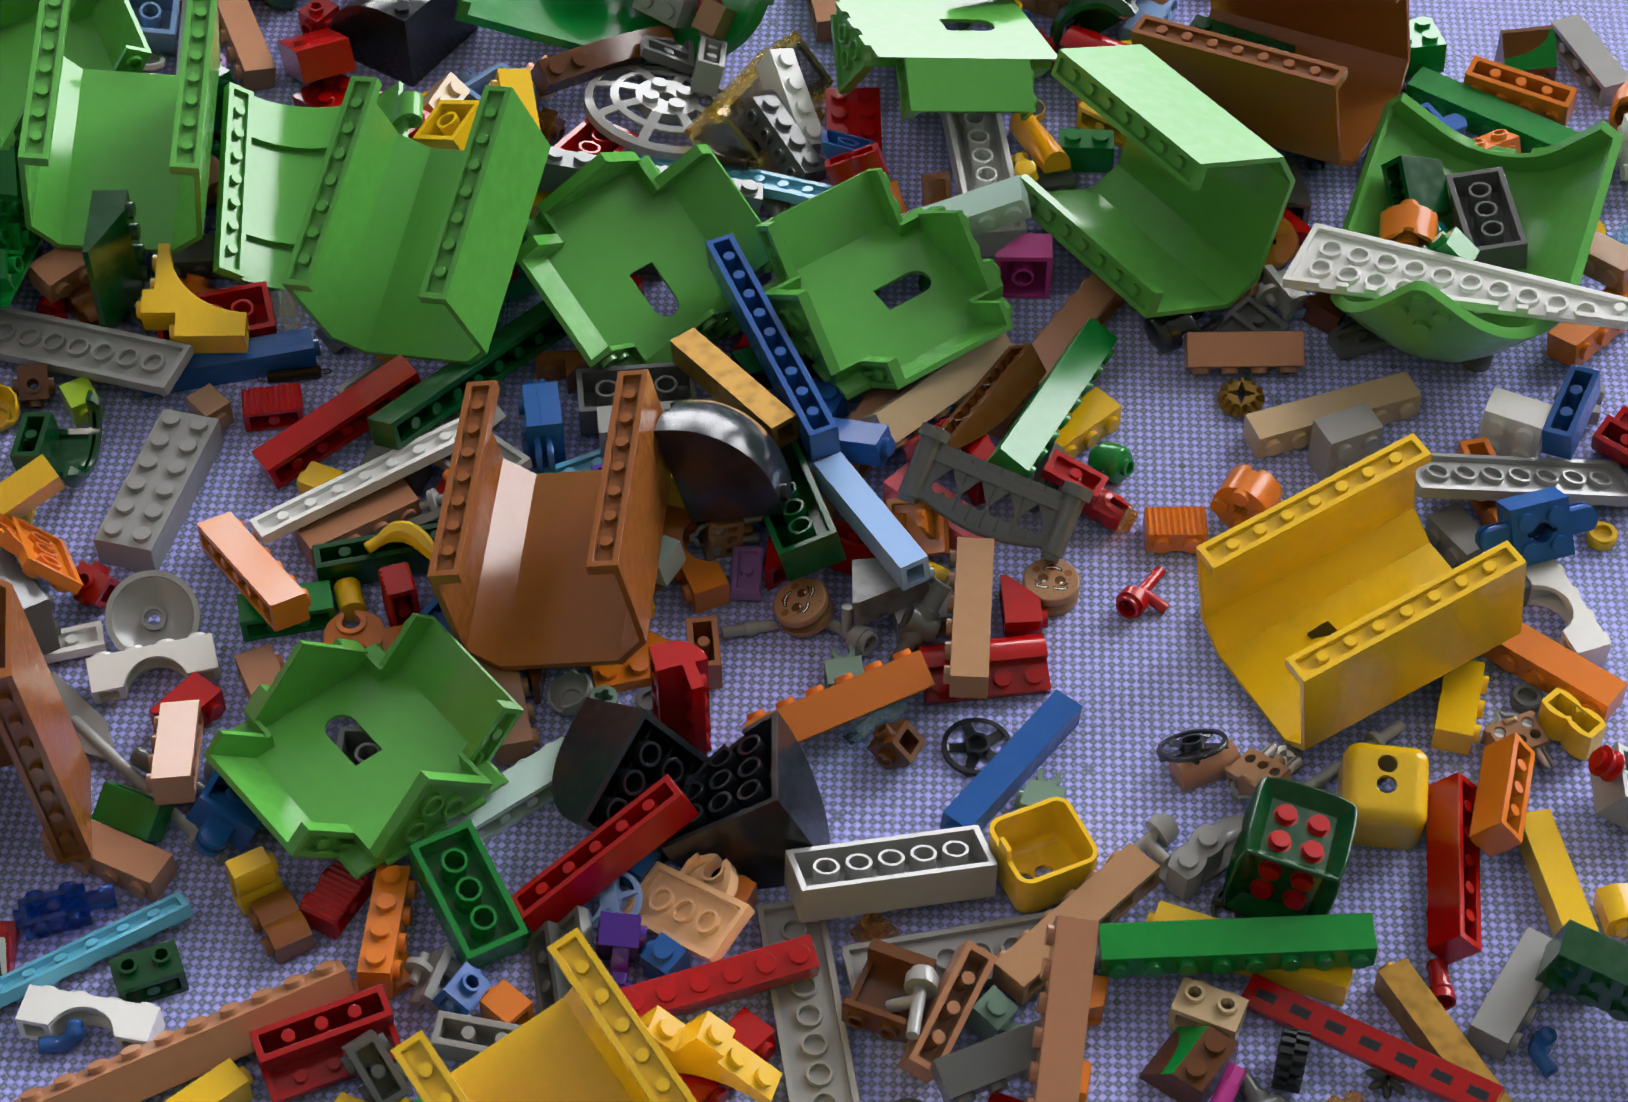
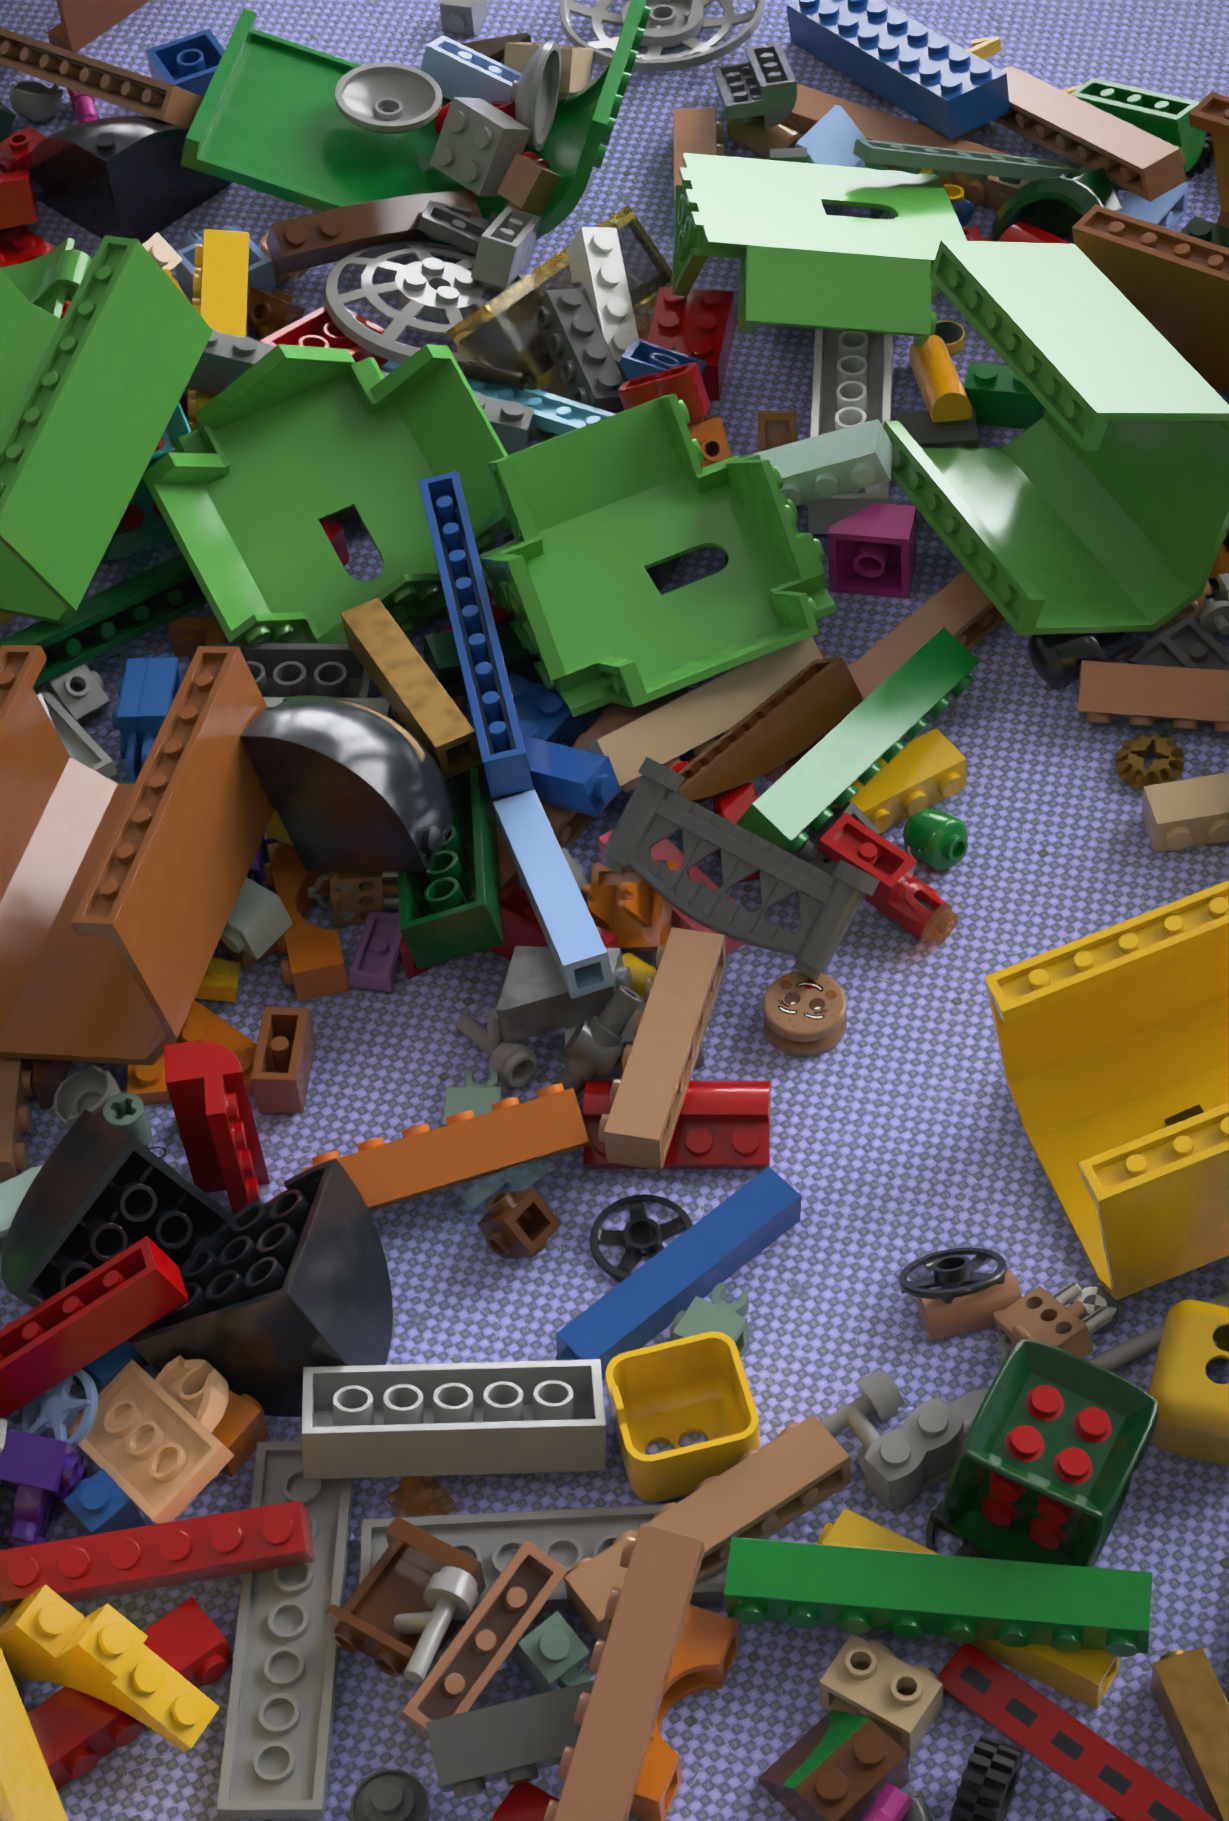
camera: 15 degrees right, 0 degrees up
(748, 628) = (363, 1030): light grey piece -> none
(803, 607) = (442, 1008): medium nougat head -> none
(1020, 609) = (751, 1043): red slope -> none
(1024, 166) = (907, 410): yellow bar -> none
(1135, 600) = (921, 1046): red piece -> none
(1174, 529) = (1001, 940): orange brick -> none
(1245, 495) = (1112, 897): orange brick -> none

